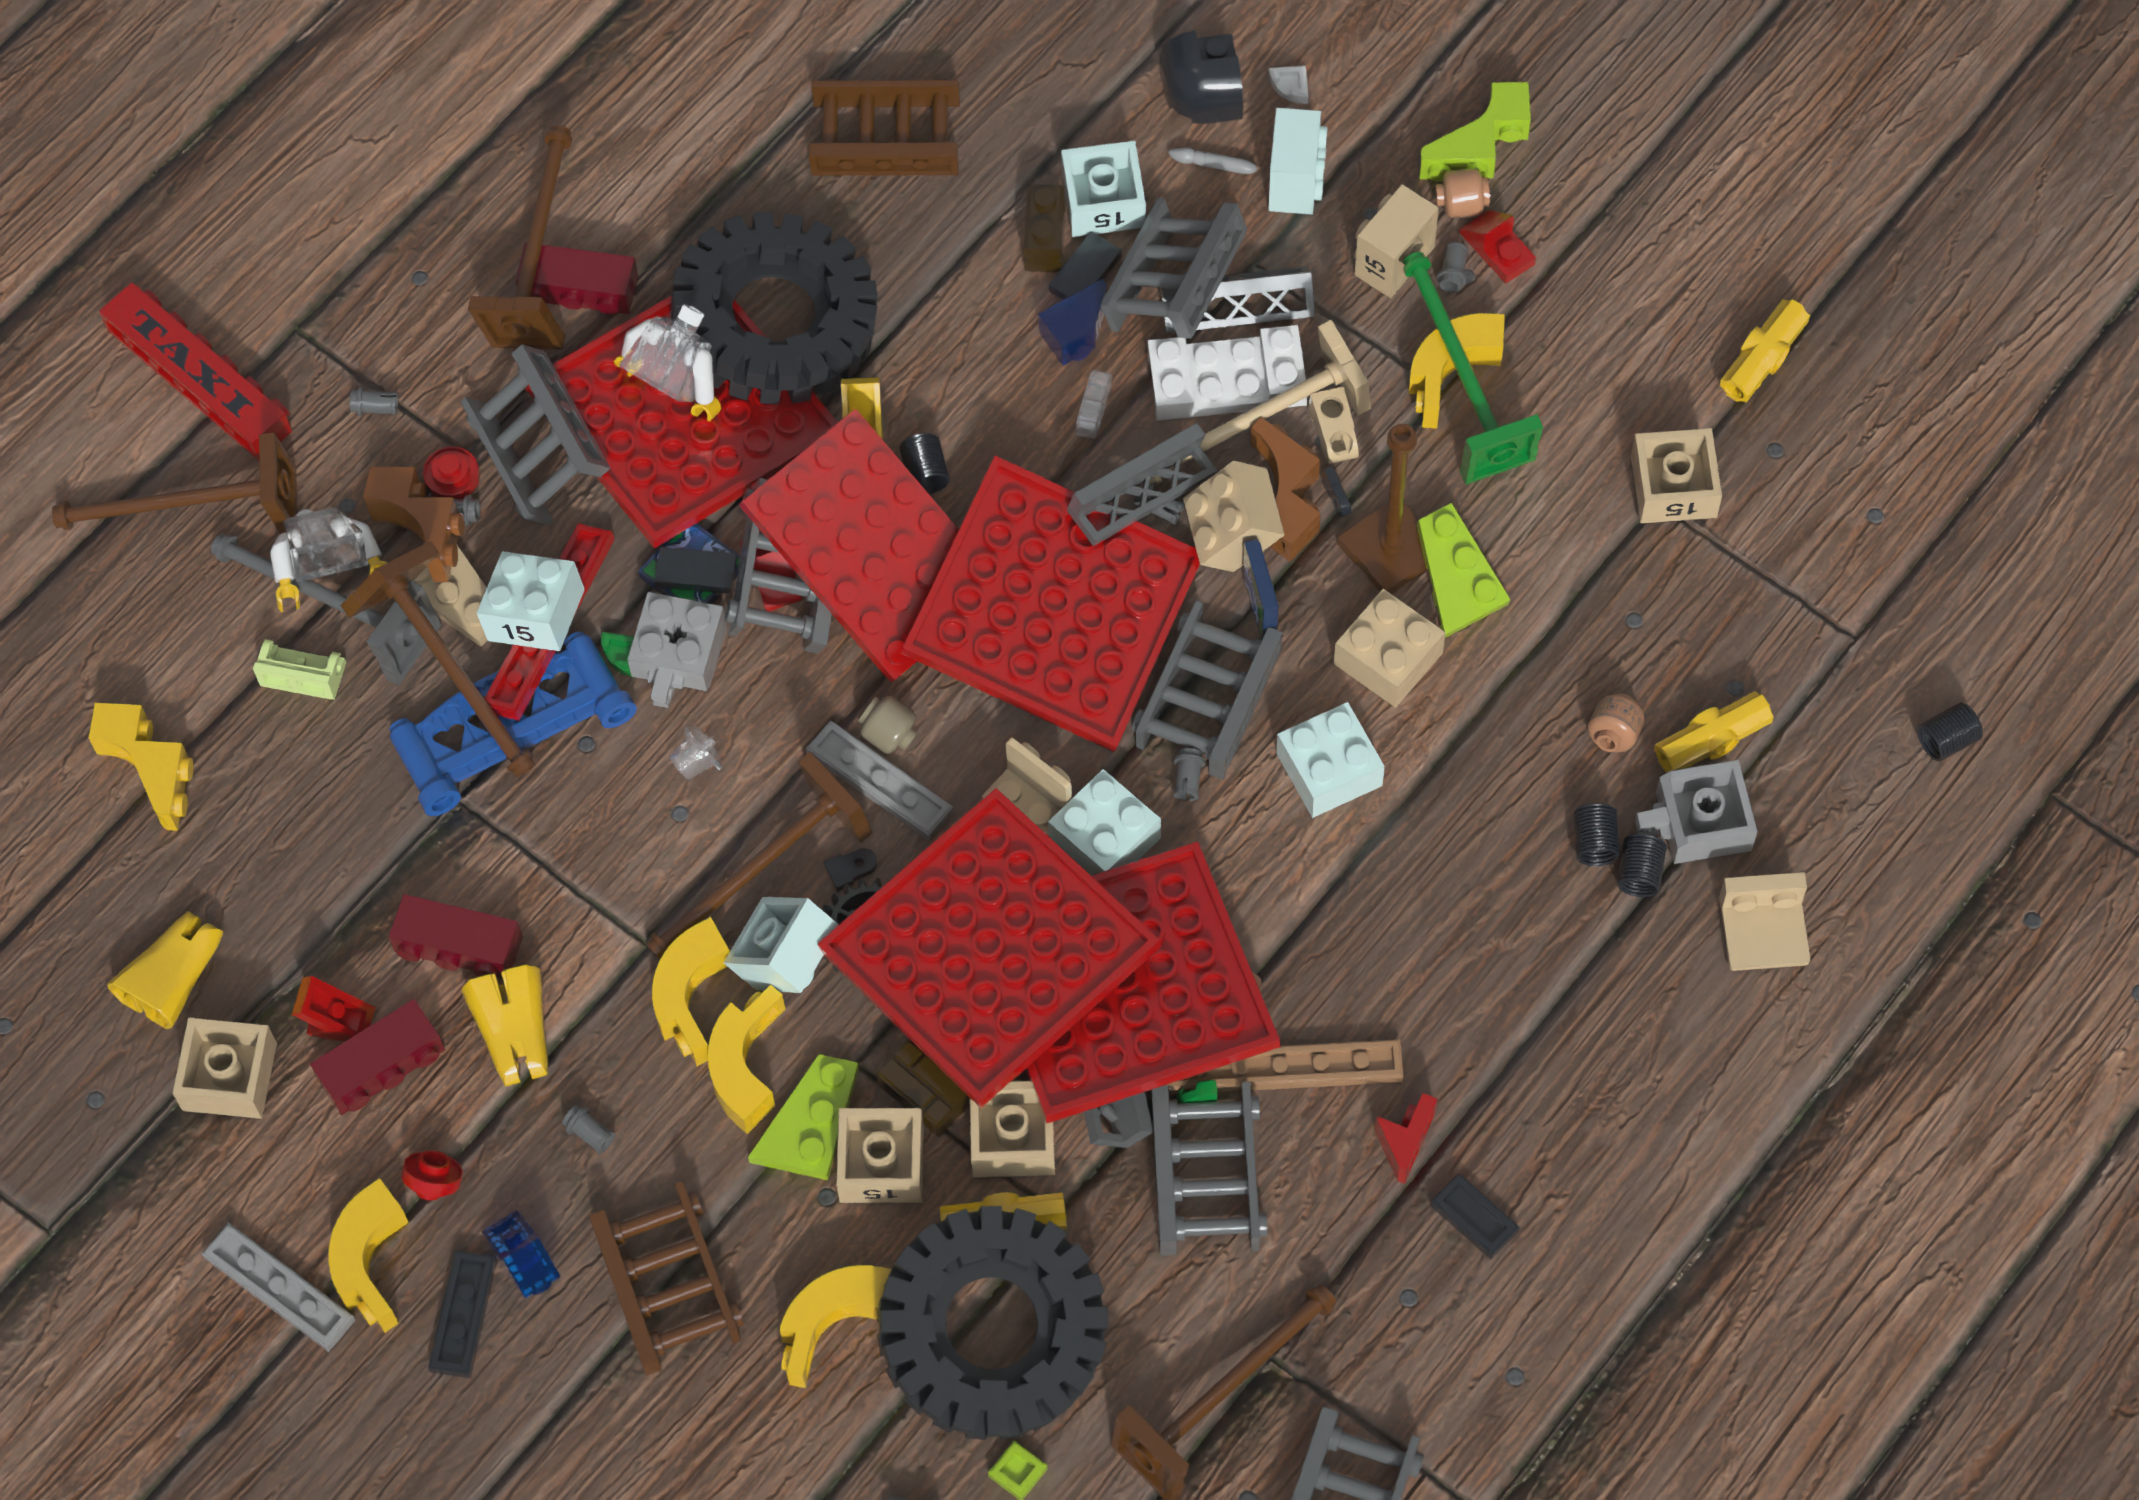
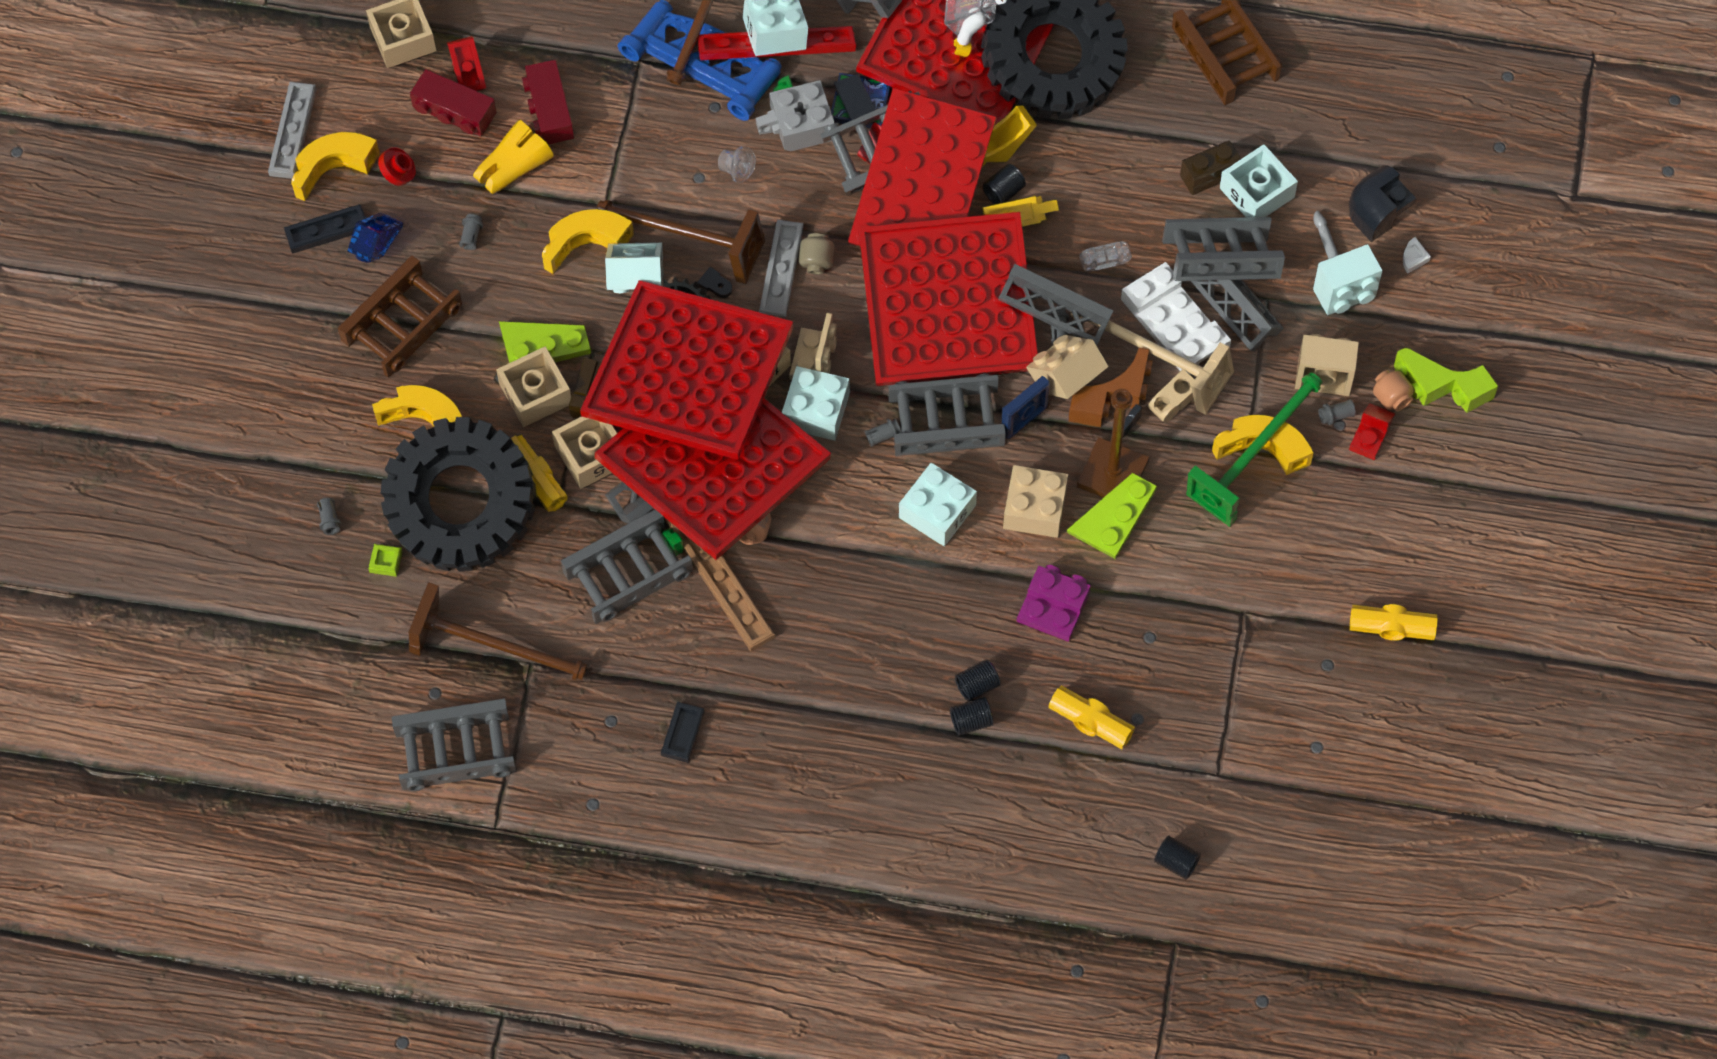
camera: 60 degrees right, 0 degrees up
(736, 1088) = (553, 280): yellow arch -> none
(971, 465) = (1030, 208): none -> yellow hinge
(1074, 324) = (1149, 217): clear blue slope -> none
(1085, 267) = (1198, 205): black tile -> none
(1401, 1143) = (703, 670): red slope -> none
(1534, 698) = (1054, 602): none -> magenta plate
(1616, 721) = (1062, 656): nougat head -> none
(1676, 475) = (1260, 608): tan brick -> none
(1701, 812) = (1027, 718): light grey hinge -> none
(1764, 921) = (974, 807): tan bracket -> none

